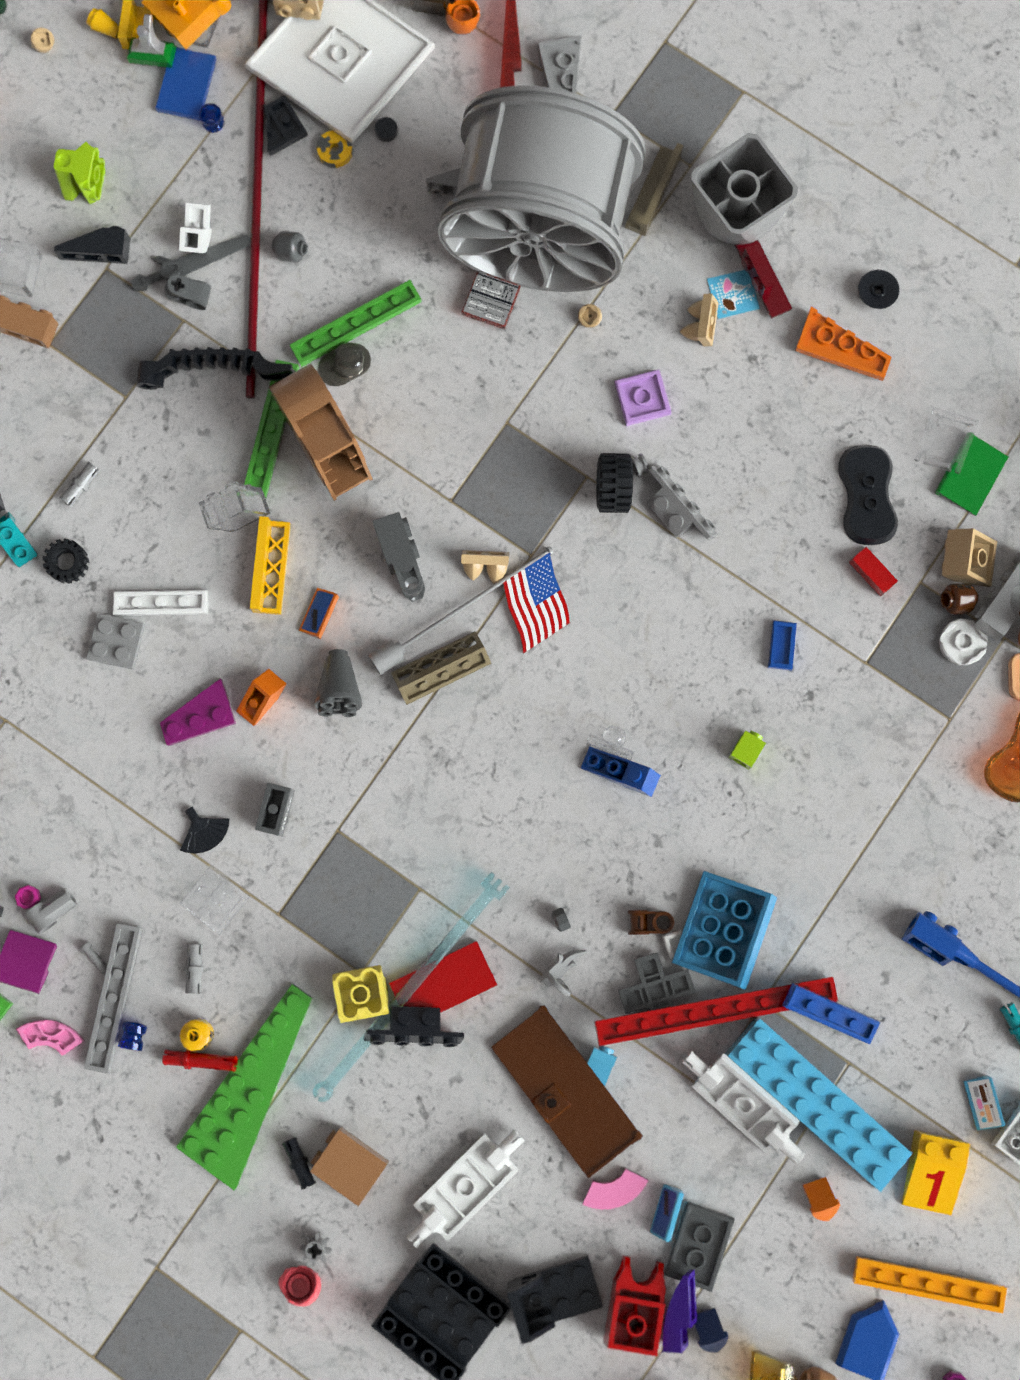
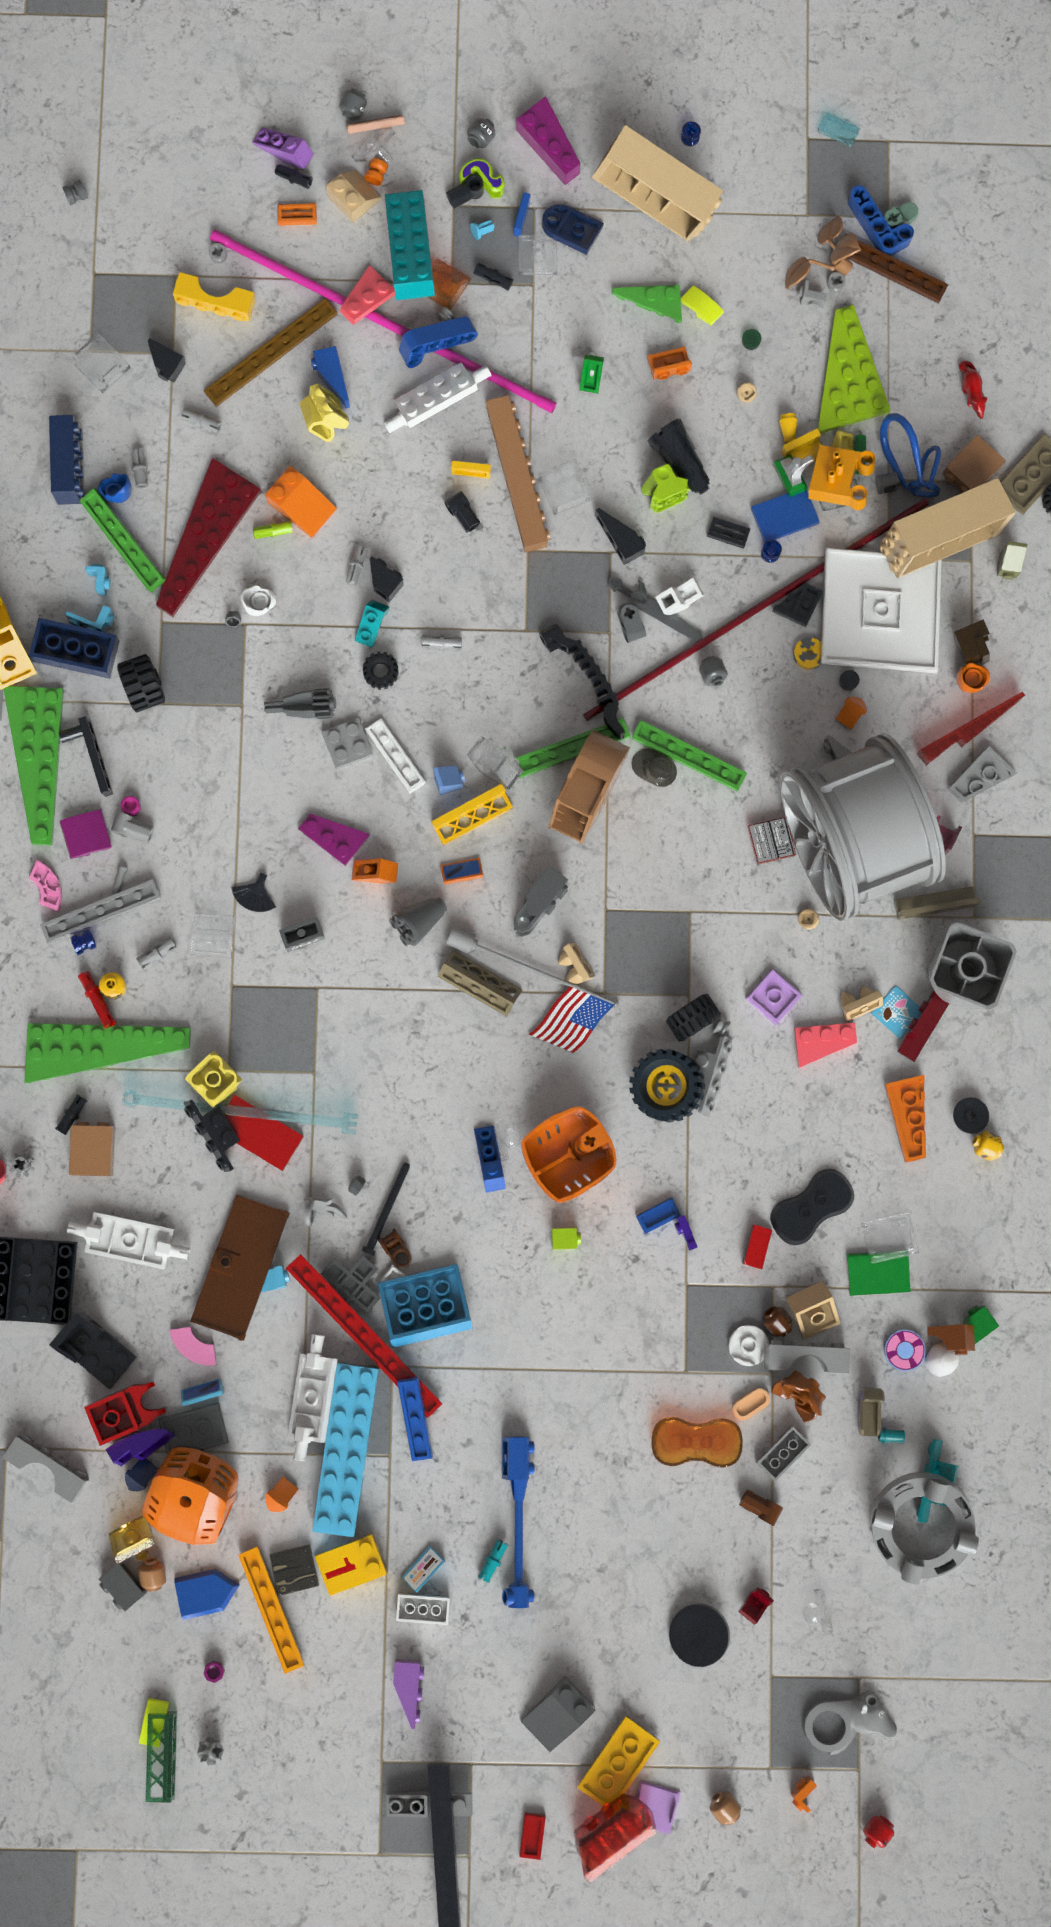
camera: 45 degrees right, 0 degrees up
(46, 135) = (679, 452): none -> black cone
(47, 656) = (305, 704): none -> dark grey piece
(168, 149) = (730, 525): none -> black tile
(219, 565) = (448, 779): none -> medium blue slope
(418, 146) = (851, 711): none -> orange tile
(604, 906) = (369, 1249): none -> black bar
(644, 534) = (645, 1080): none -> black wheel
(669, 705) = (558, 1160): none -> orange piece
(715, 381) = (822, 1040): none -> coral wing
(793, 1286) = (210, 1504): none -> orange piece
(814, 628) = (682, 1227): none -> dark purple plate
(903, 1234) = (294, 1569): none -> clear smoke tile
(917, 292) = (988, 1145): none -> yellow head

